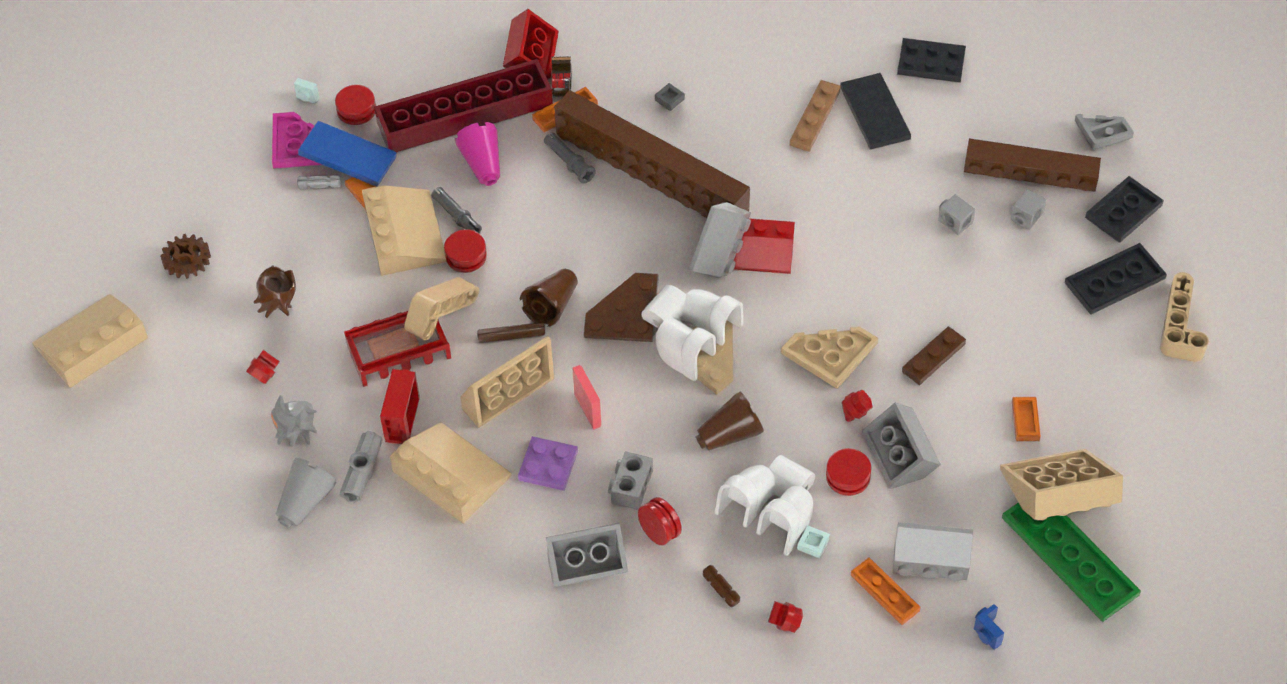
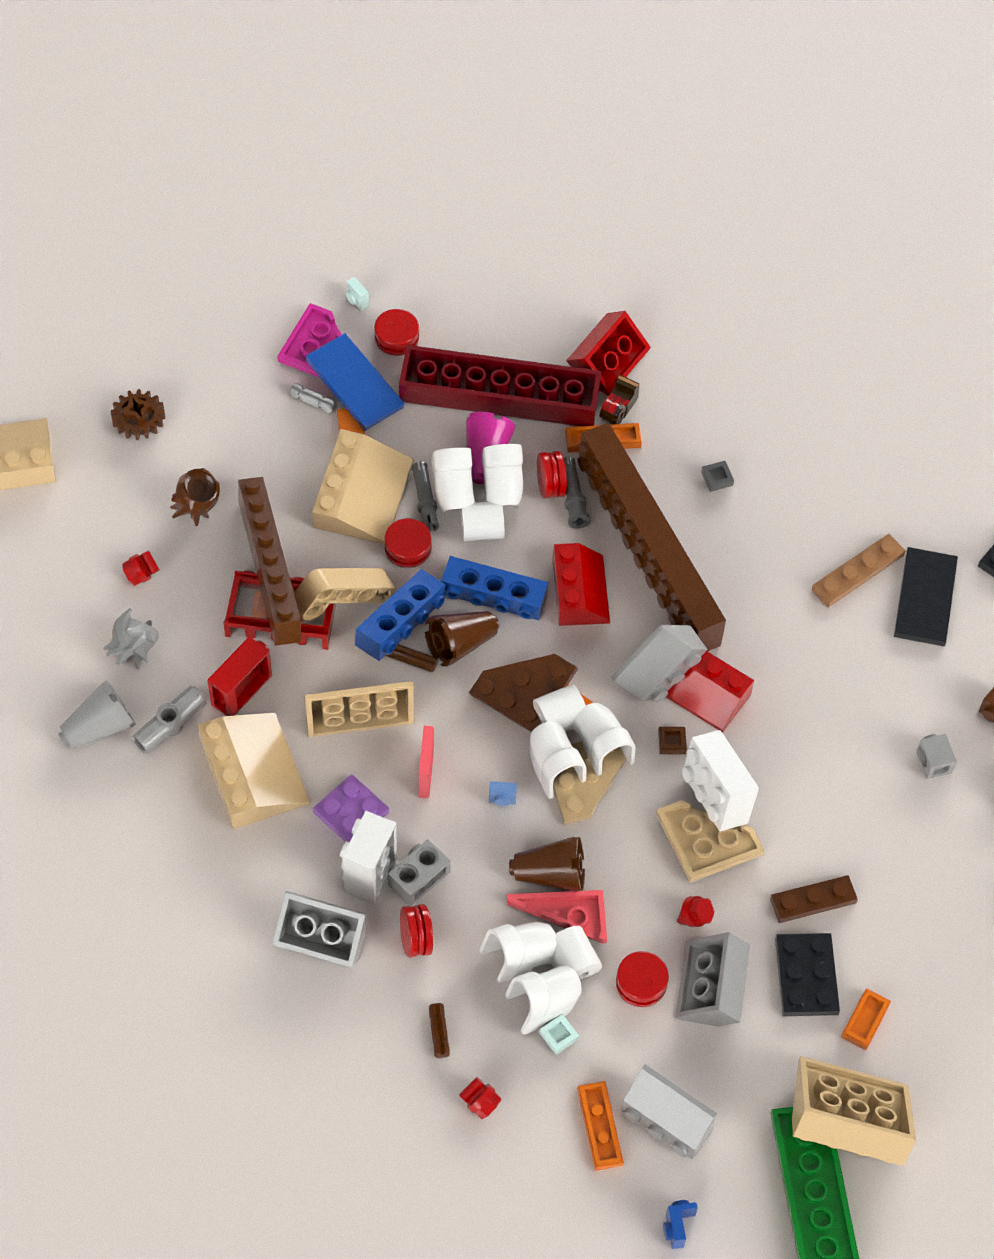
camera: 25 degrees right, 5 degrees up
(369, 309) = (269, 561): none -> reddish brown brick
(496, 303) = (400, 615): none -> blue brick
(511, 167) = (455, 488): none -> white piece
(546, 150) = (551, 474): none -> red head
(554, 251) = (507, 583): none -> blue brick
(590, 483) = (369, 856): none -> white brick
(616, 220) = (579, 585): none -> red slope
(658, 393) = (502, 793): none -> medium blue plate
(758, 296) = (672, 740): none -> reddish brown tile
(759, 451) = (566, 910): none -> coral wing
(817, 302) = (720, 780): none -> white brick
(964, 409) = (807, 974): none -> black plate

